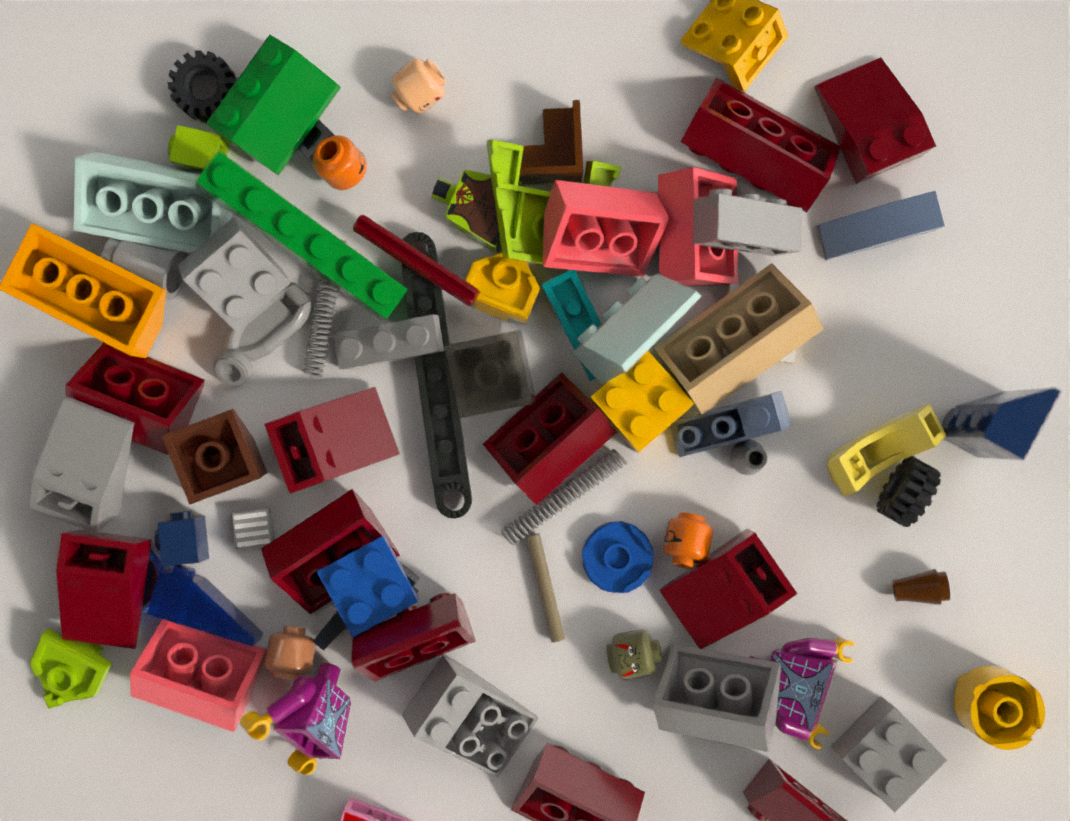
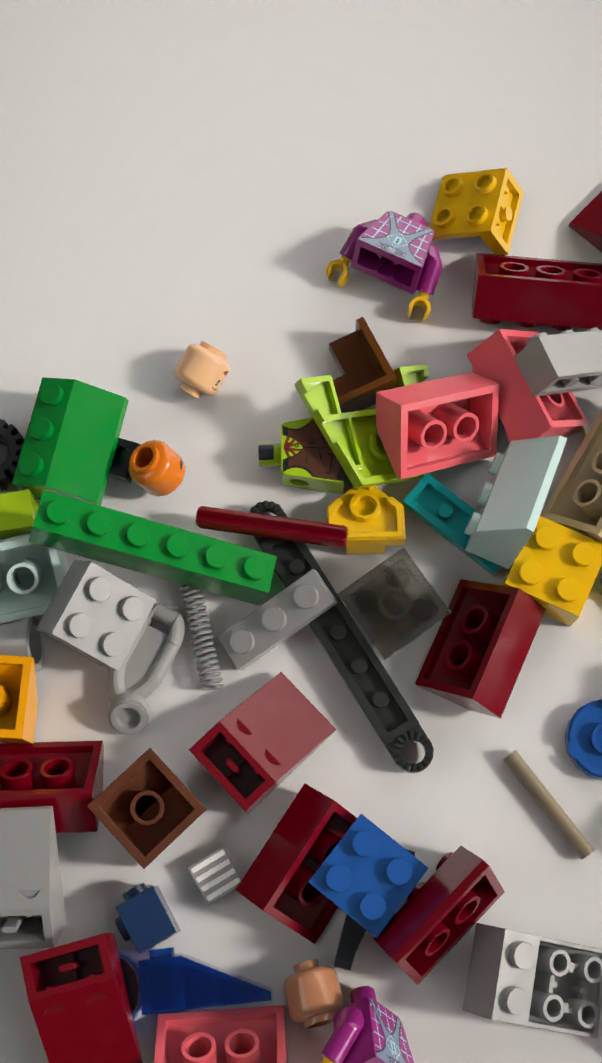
camera: 20 degrees left, 15 degrees down
(564, 496) = (558, 647): light grey piece -> none
(639, 47) = (395, 252): none -> magenta torso

